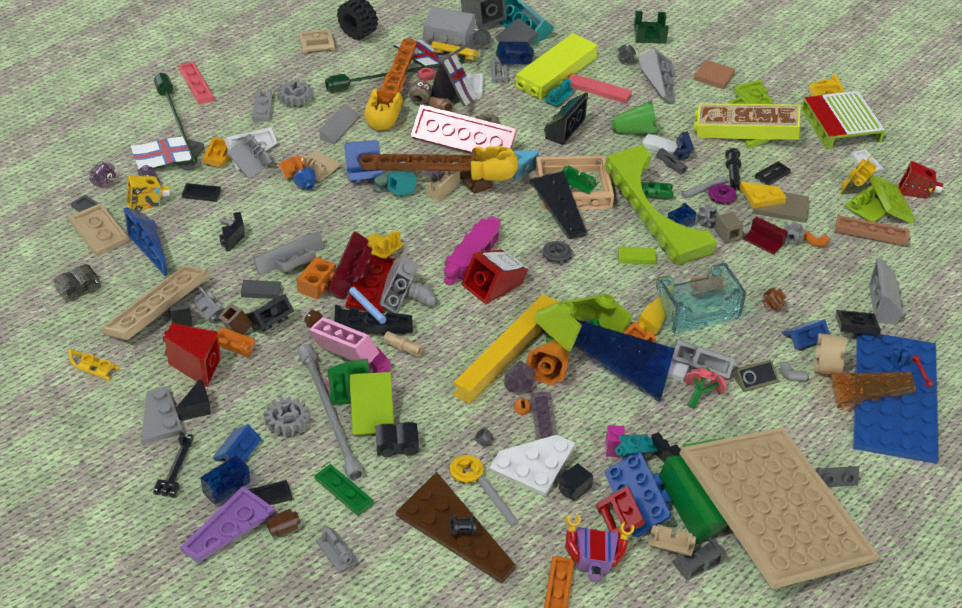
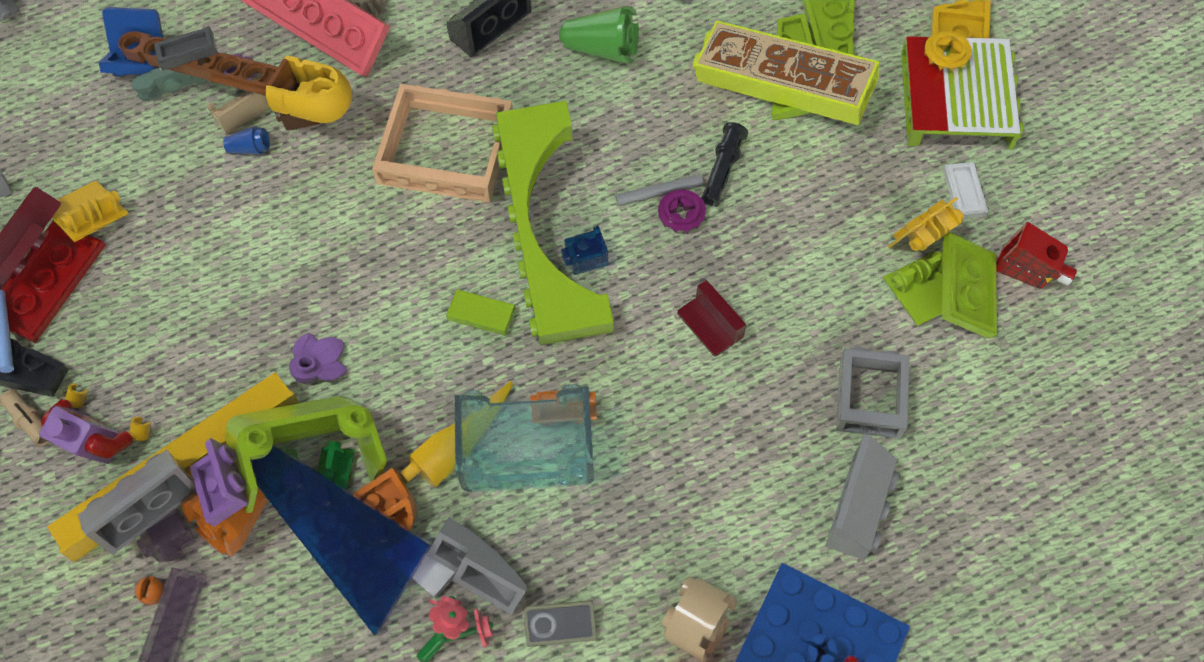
camera: 20 degrees right, 20 degrees up
(292, 165) = (28, 30): orange bracket -> none
(305, 178) = (38, 57): blue cone -> none
(321, 164) = (73, 31): tan hinge -> none
(397, 283) = (67, 299): light grey slope -> none
(401, 182) = (173, 94): teal brick -> none
(407, 154) = (185, 48): none -> dark grey tile
(422, 293) = (103, 321): light grey animal -> none
(446, 339) = (85, 435): none -> torso
(457, 200) = (249, 141): none -> blue cone
(481, 238) = (220, 249): dark pink hinge -> none
(483, 437) = (54, 642): dark grey hinge -> none
(493, 274) = (227, 307): red slope -> none
(507, 354) = (137, 502): none -> light grey slope
(526, 162) = (383, 88): medium azure slope -> none
(553, 332) = (219, 483): none -> medium lavender bracket
(557, 290) = (320, 357): none -> medium lavender plate
(560, 202) = (392, 181): black wing -> none
(562, 248) = (346, 270): dark grey gear -> none
(582, 182) = (438, 147): green hinge -> none
(655, 143) = (627, 87): white tile -> none
(657, 190) = (567, 182): green hinge -> none
(671, 161) = (628, 126): dark grey pin -> none
(685, 145) = (658, 97): dark blue bracket -> none
(707, 215) = (625, 249): light grey gear -> none
(728, 227) = (653, 289): dark tan brick -> none
(762, 195) = (745, 230): yellow wing -> none
(774, 299) = (662, 463): dark orange gear -> none
(775, 175) = (791, 192): black tile -> none
(791, 374) = (621, 628): light grey arm -> none
(794, 208) = (772, 253): dark tan tile -> none
(795, 232) = (762, 323): light grey gear -> none
(807, 333) = (689, 547): blue panel -> none
(814, 241) = (803, 348): orange arm -> none
(836, 98) = (939, 41): none -> yellow gear
(857, 322) = (786, 548): black tile -> none
(859, 264) = (870, 421): none -> light grey window
(872, 230) = (892, 335): nougat plate -> none

